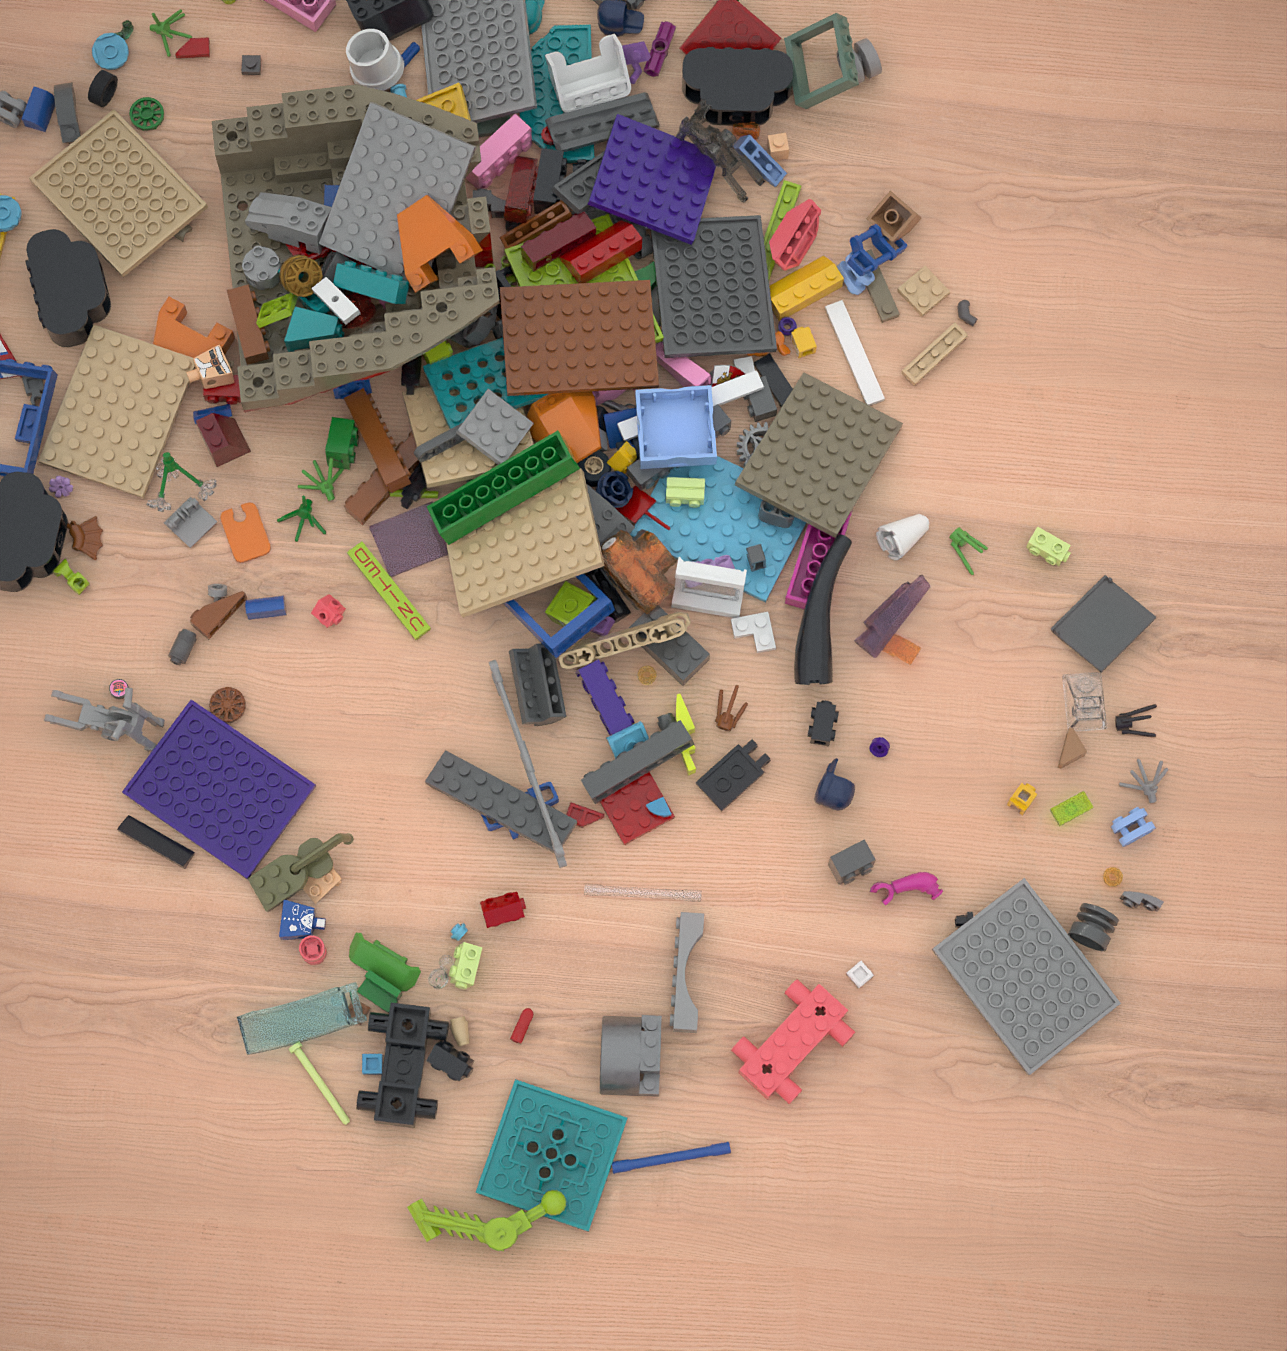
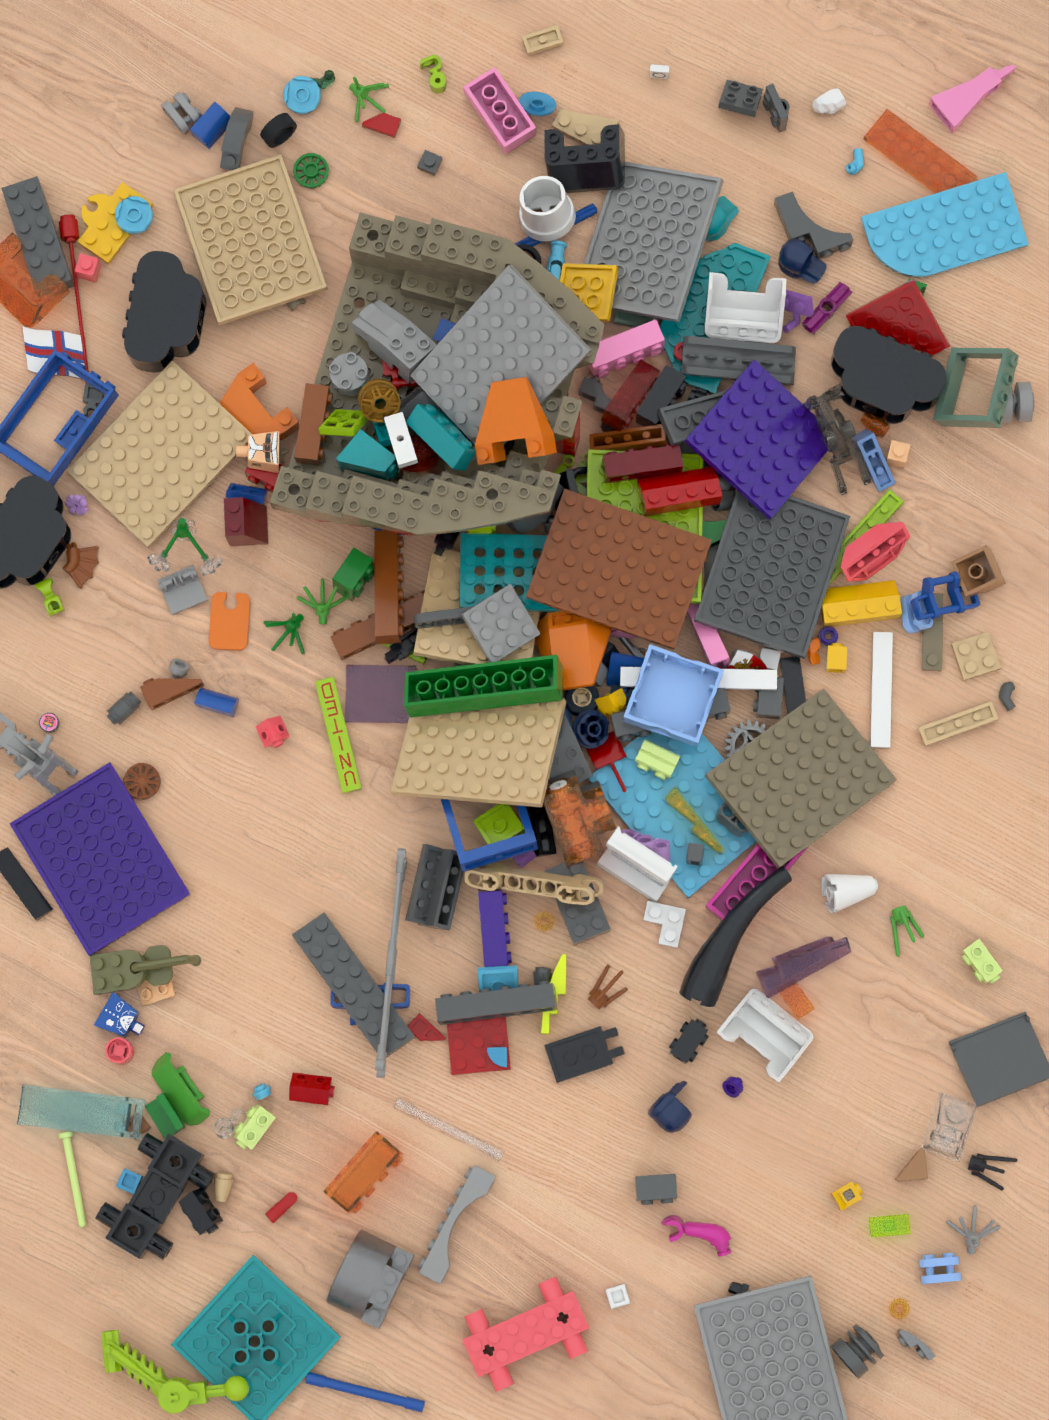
camera: 30 degrees right, 5 degrees up
(583, 961) = (363, 1172): none -> clear orange windscreen
(750, 535) = (699, 829): none -> clear yellow slope
(889, 685) = (769, 1031): none -> white windscreen

